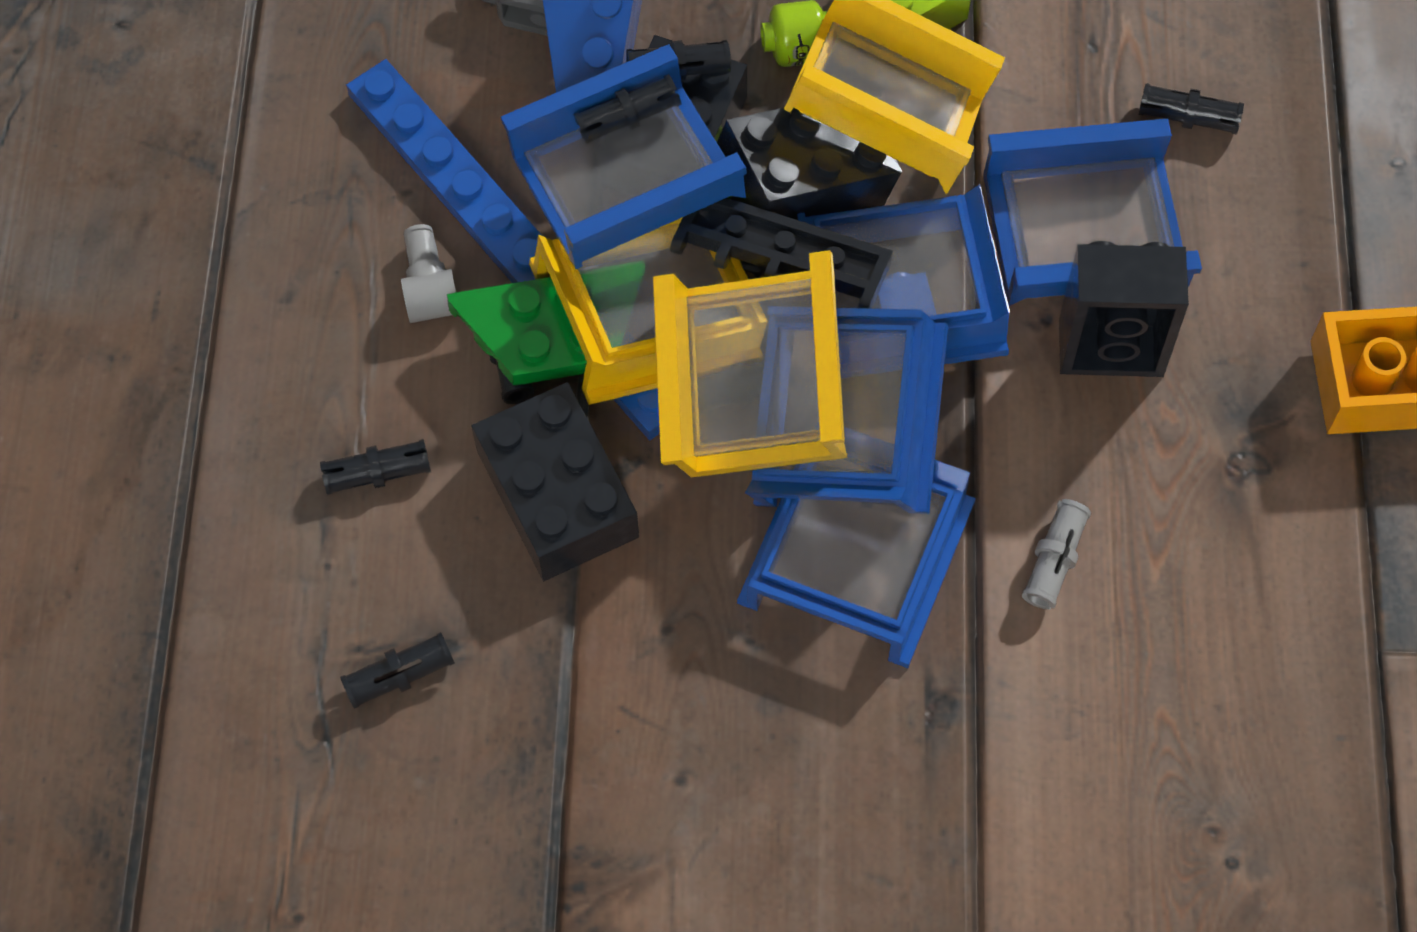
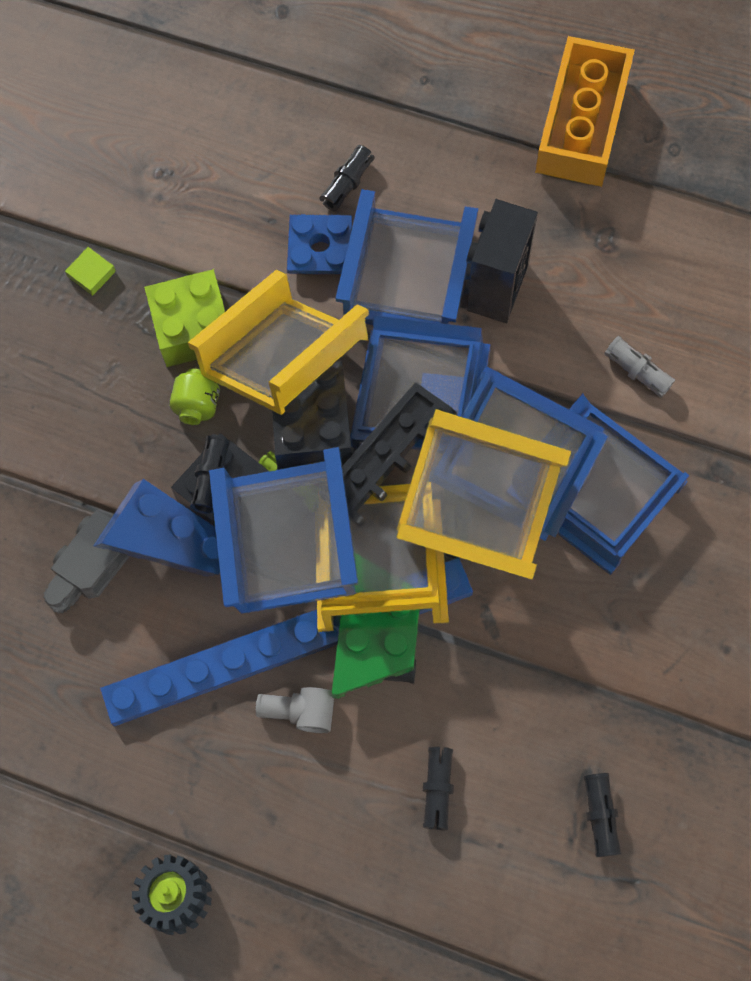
camera: 70 degrees left, 5 degrees up
(158, 210) = (171, 895): none -> black wheel
(556, 481) = (495, 663): black brick -> none
(627, 109) = (247, 517): black pin -> none
(1079, 84) = (310, 229): none -> blue piece

